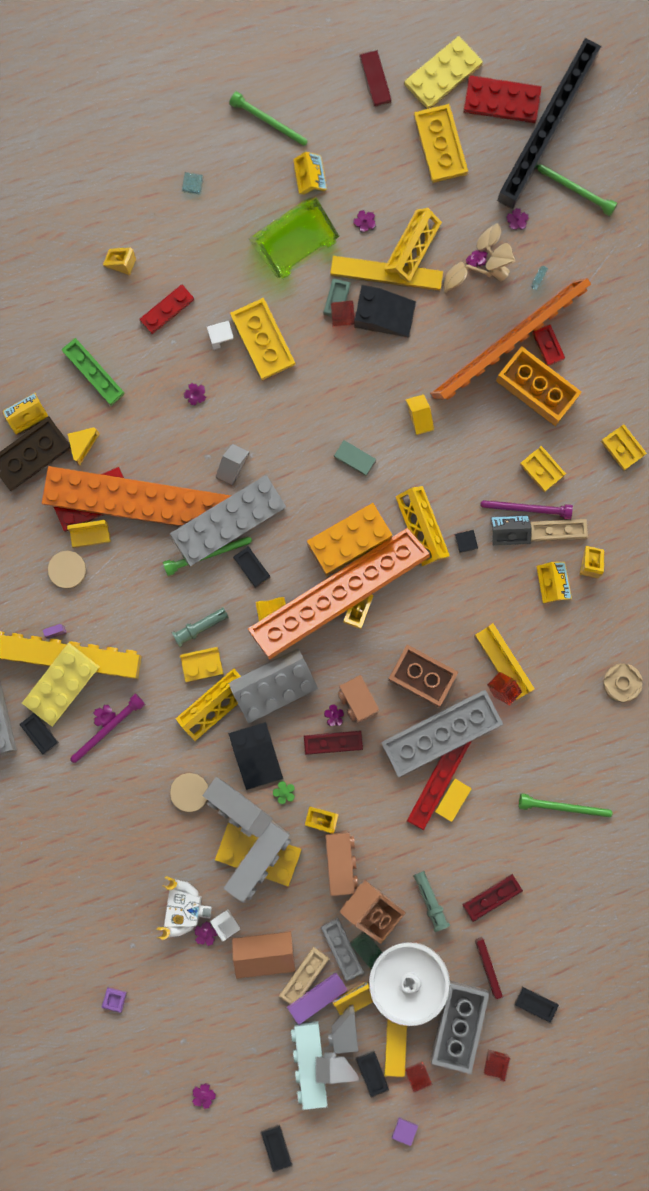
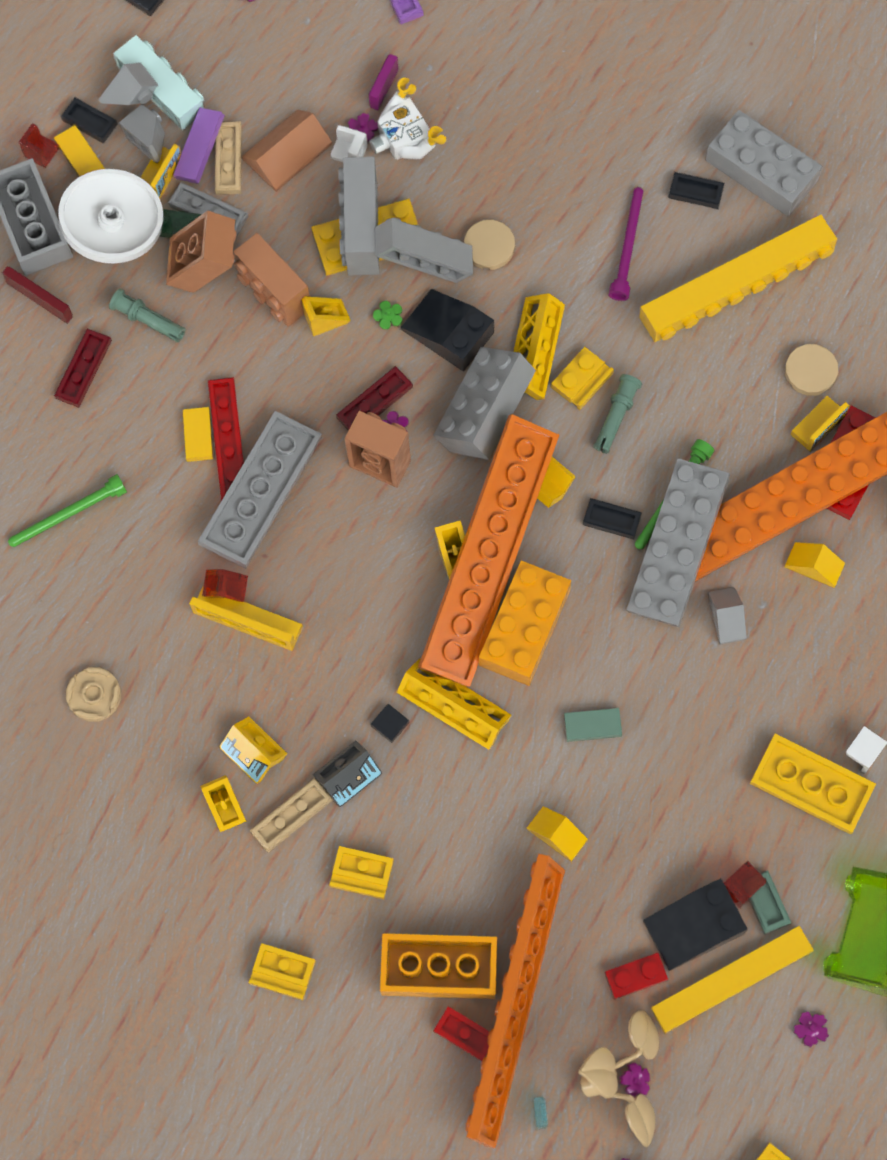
camera: 145 degrees right, 10 degrees down
(54, 631) = (768, 296): medium lavender tile -> none
(60, 684) = (713, 245): light yellow plate -> none
(103, 715) = (642, 252): magenta plant -> none
(161, 457) = (815, 562): none -> yellow slope
(170, 954) = (383, 81): none -> magenta tile
(195, 393) = (836, 660): magenta plant -> none
(404, 1131) = (17, 92): medium lavender tile -> none
(411, 237) = (736, 1035): yellow fence -> none
(423, 676) = (327, 532): nougat brick -> none
(435, 311) = (636, 976): none -> red plate
(563, 511) = (300, 840): magenta piece -> none

